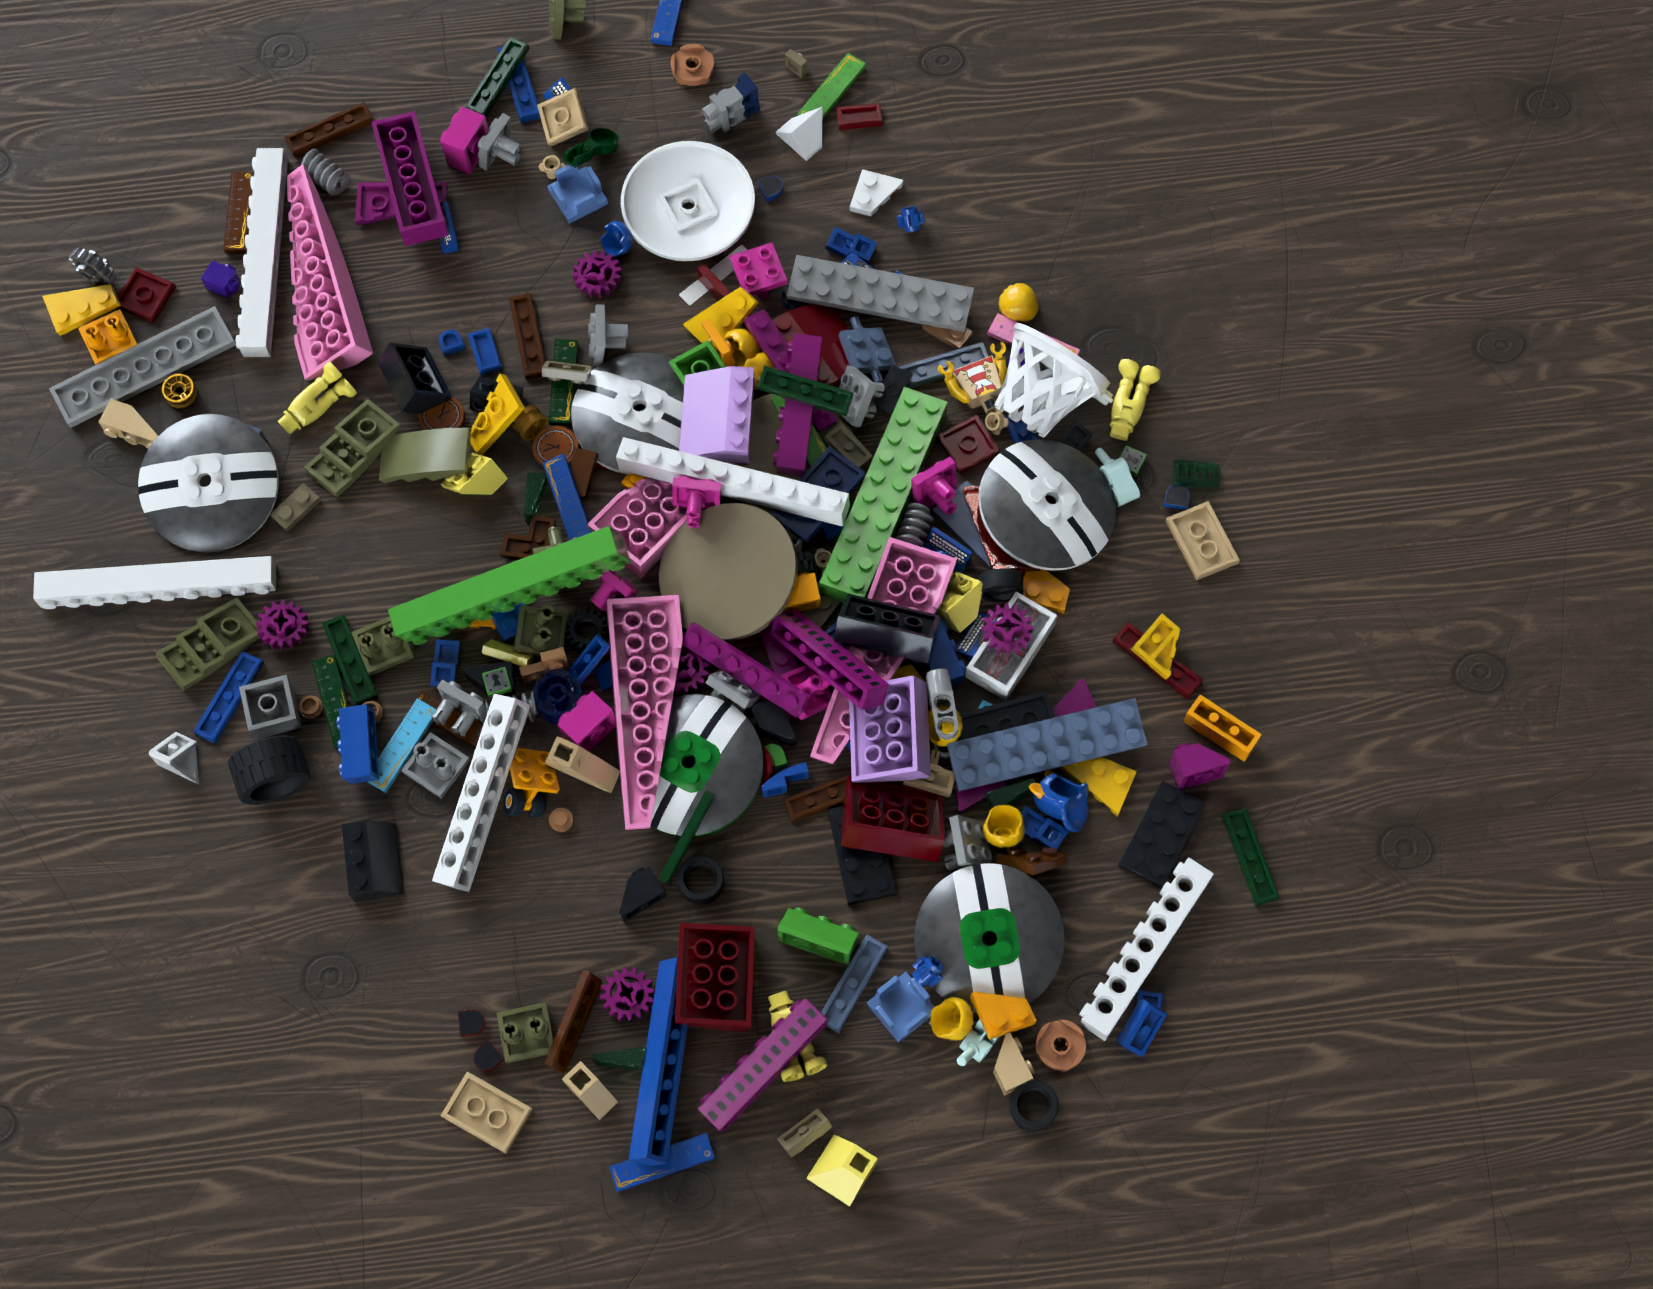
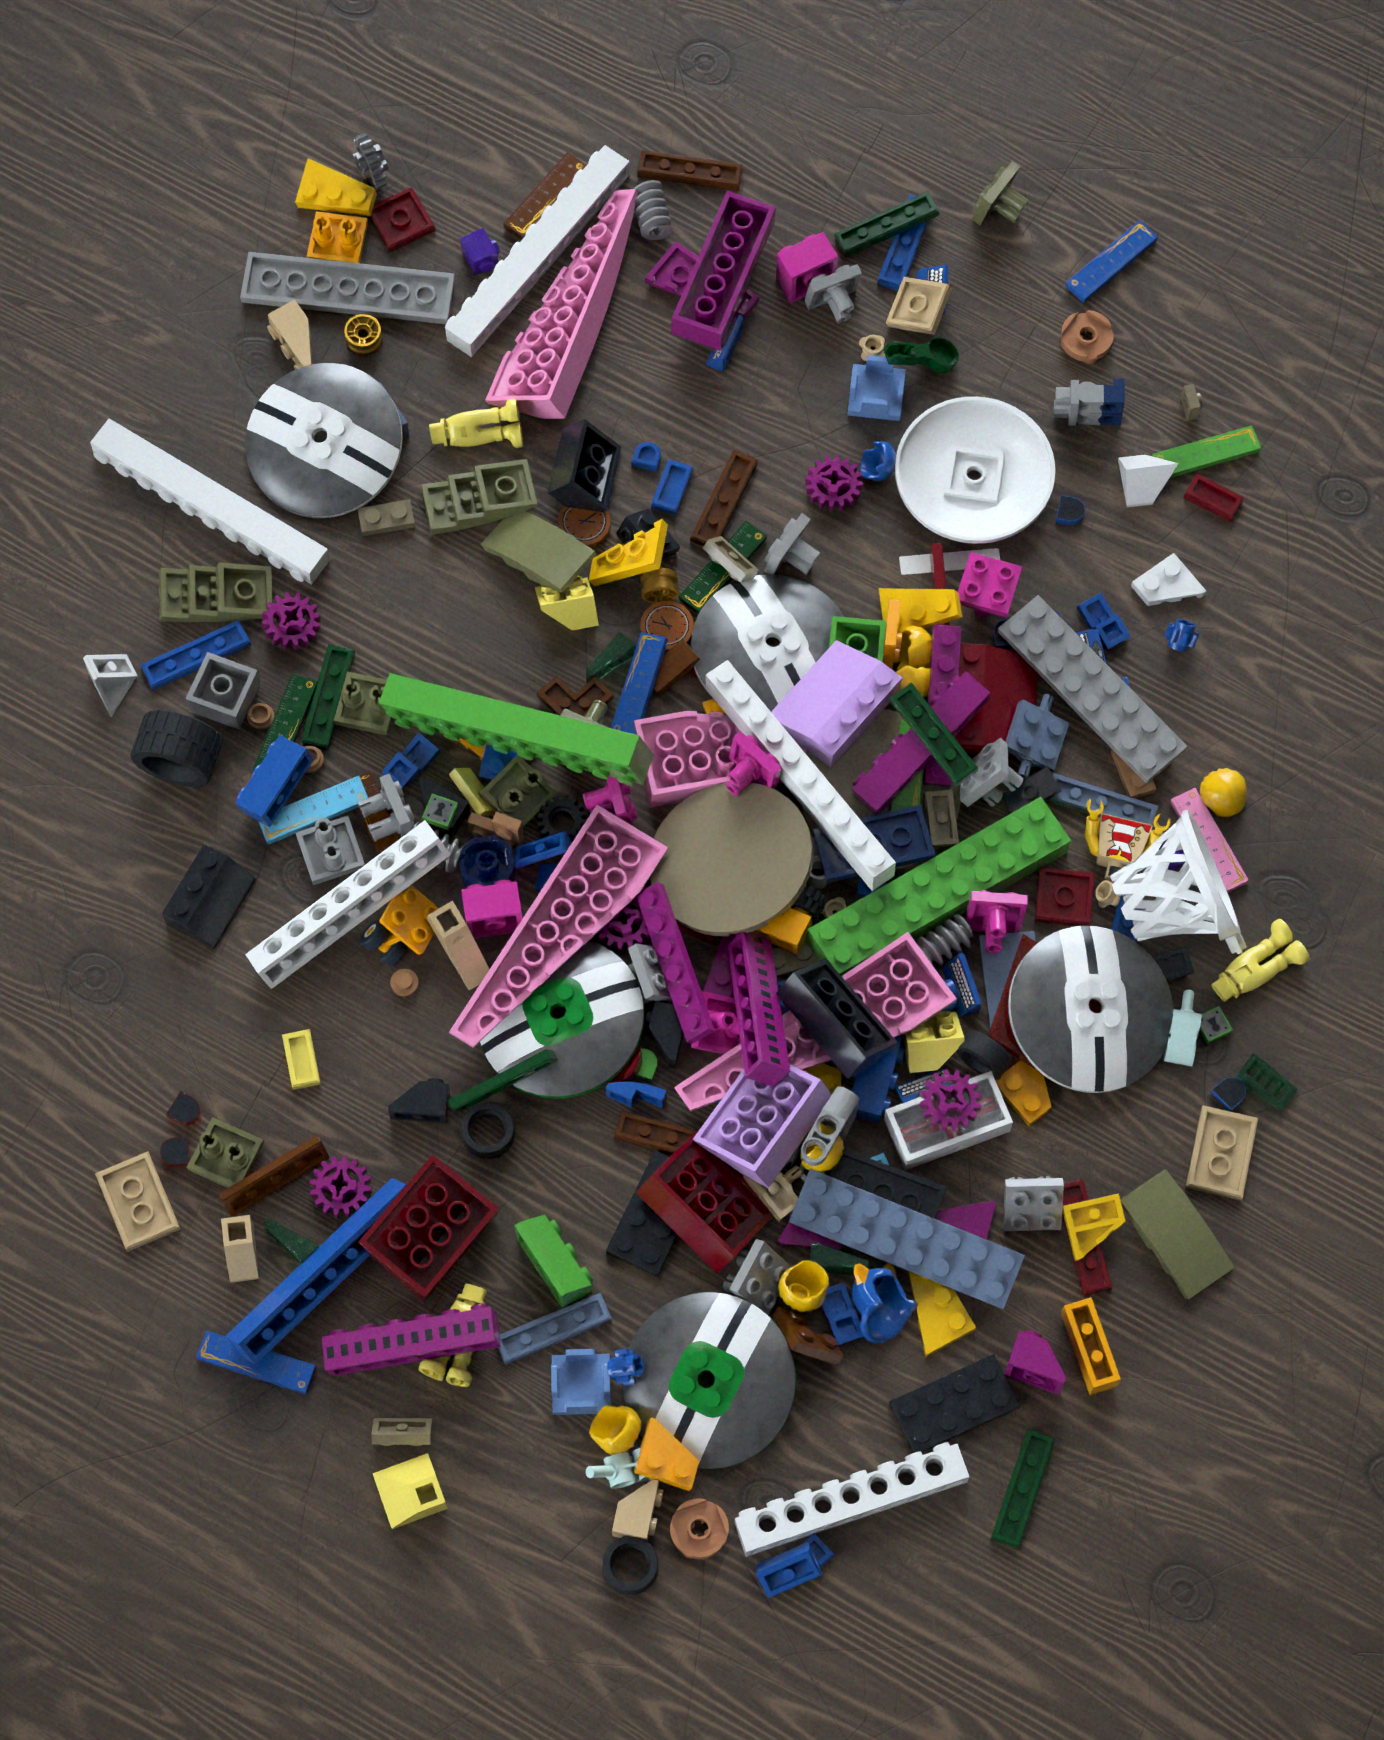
camera: 35 degrees right, 0 degrees up
(528, 926) = (301, 1059): none -> light yellow tile
(1110, 660) = (1033, 1204): none -> light grey plate
(1217, 614) = (1176, 1234): none -> olive slope

